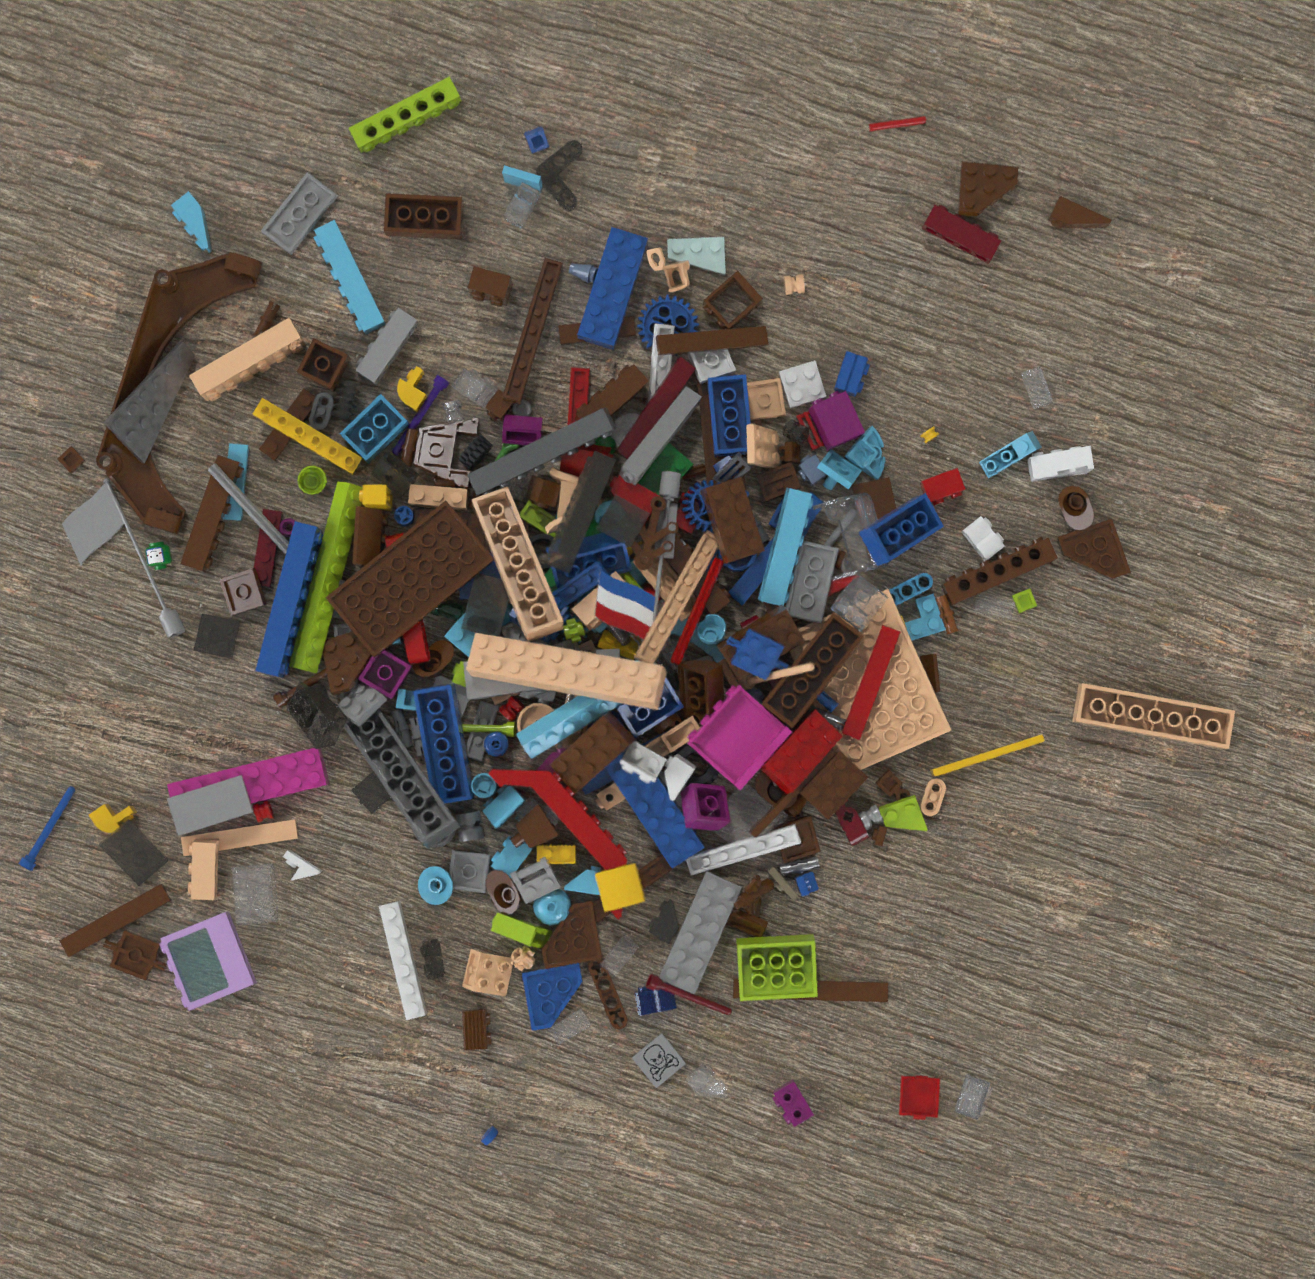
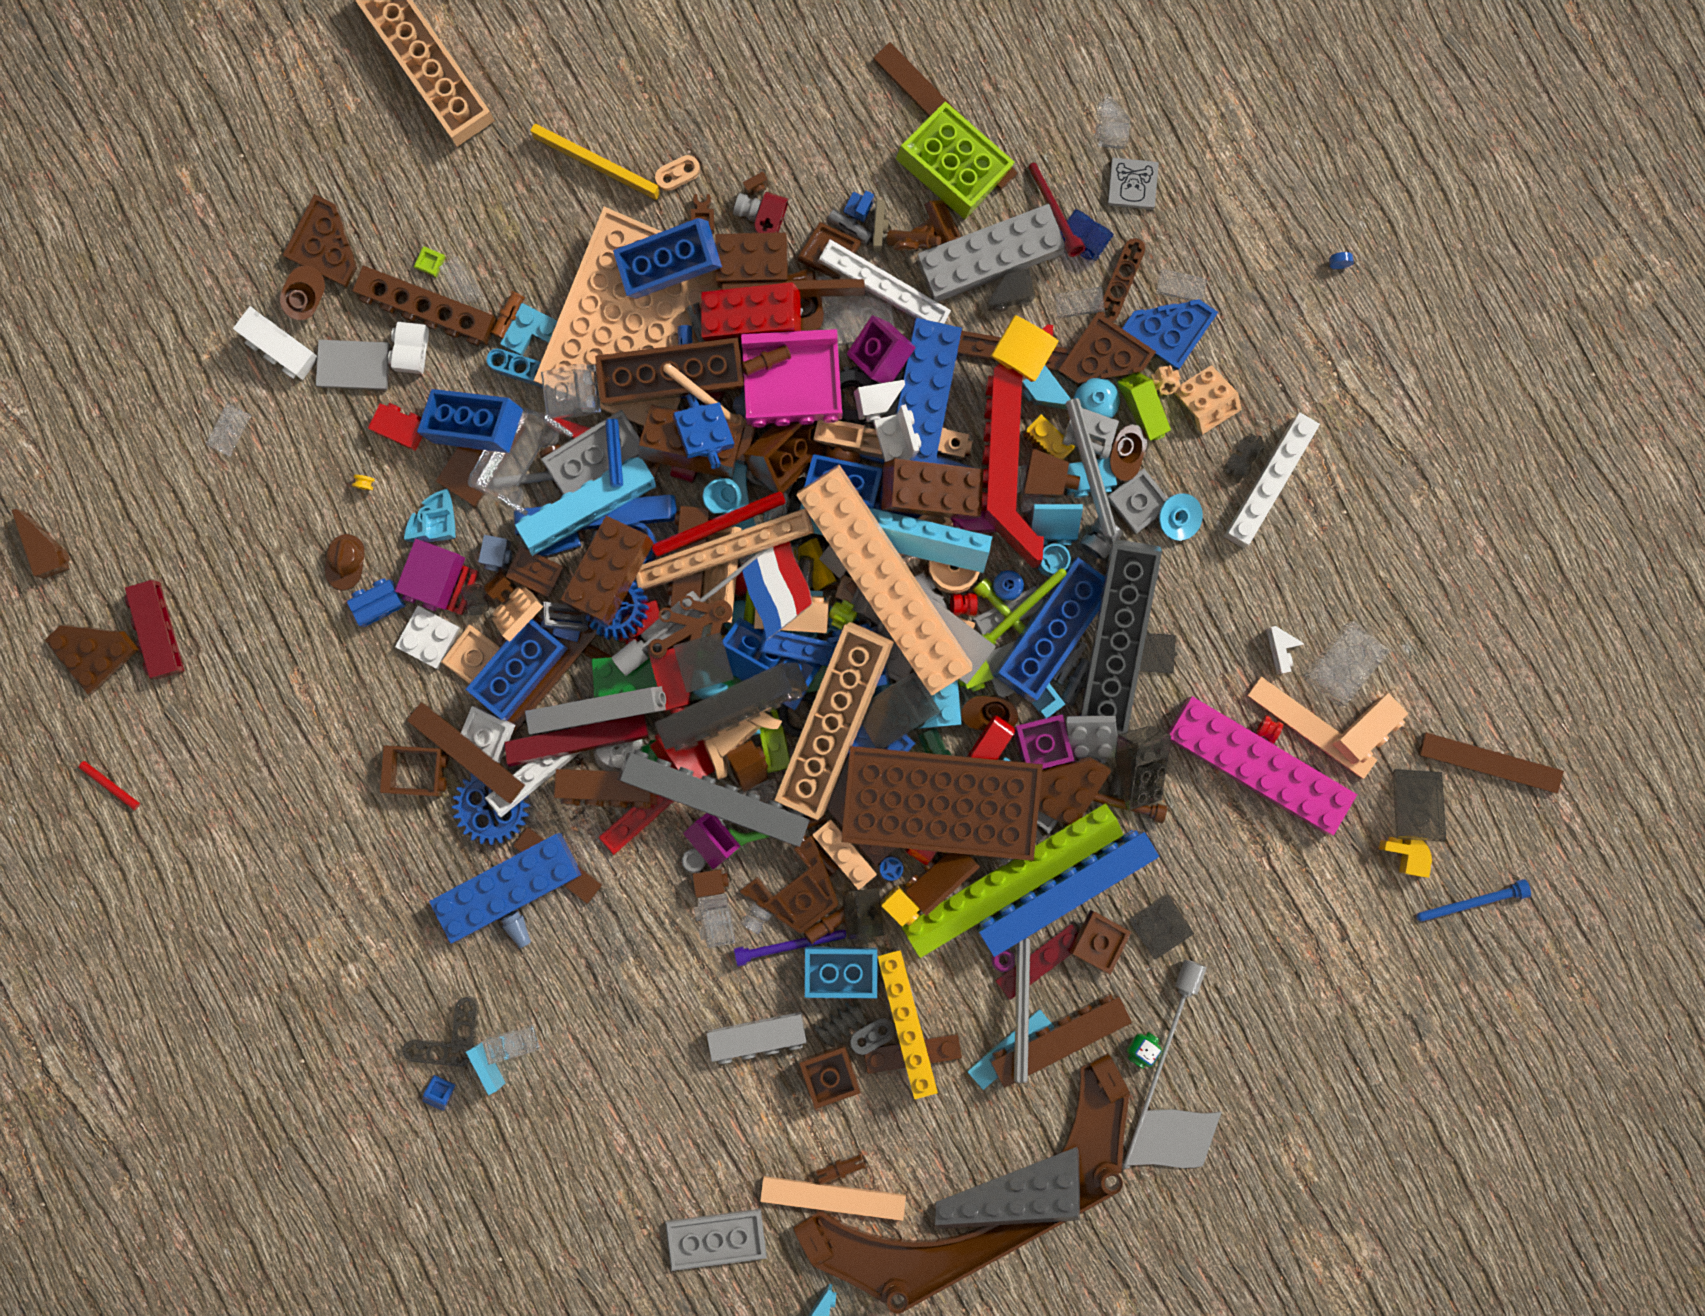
camera: 135 degrees left, 0 degrees up
(71, 459) = (1138, 1216): reddish brown plate -> none
(135, 955) = (1502, 714): reddish brown plate -> none
(207, 961) = (1443, 645): panel -> none
(210, 805) = (1314, 777): light grey tile -> none
(248, 360) = (893, 1148): light nougat brick -> none
(255, 300) = (833, 1198): none -> light nougat tile
(312, 480) = (941, 981): lime hair -> none
(351, 280) = (727, 1135): medium azure brick -> none
(407, 391) = (779, 977): yellow brick -> none
(409, 105) = (472, 1224): lime brick -> none
(423, 216) = (607, 1123): reddish brown brick -> none
(474, 739) = (1025, 606): none -> lime piece
(475, 452) = (772, 861): black tyre -> none
(475, 1029) = (1265, 361): reddish brown brick -> none
(490, 286) = (611, 998): reddish brown piece -> none
(513, 858) = (1091, 467): none -> light grey axle
(532, 331) = (614, 920): reddish brown tile -> none
(682, 267) = (426, 846): light nougat piece -> none
(701, 252) = (397, 843): light aqua wing -> none
(763, 731) = (766, 360): none -> reddish brown pin
(793, 1103) = (1054, 36): magenta brick -> none
(794, 284) = (344, 732): light nougat wheel -> none
(798, 592) = (614, 453): none -> blue axle
(838, 470) = (472, 529): medium azure tile -> none
(871, 682) = (629, 316): red tile -> none
(880, 734) = (667, 258): none -> blue brick
(894, 380) = (344, 561): none -> reddish brown piece
(903, 814) = (717, 182): lime wing -> none
(931, 667) = (563, 284): reddish brown slope -> none
(1006, 496) = (352, 364): none -> light grey tile
(1010, 454) = (311, 396): medium azure slope -> none

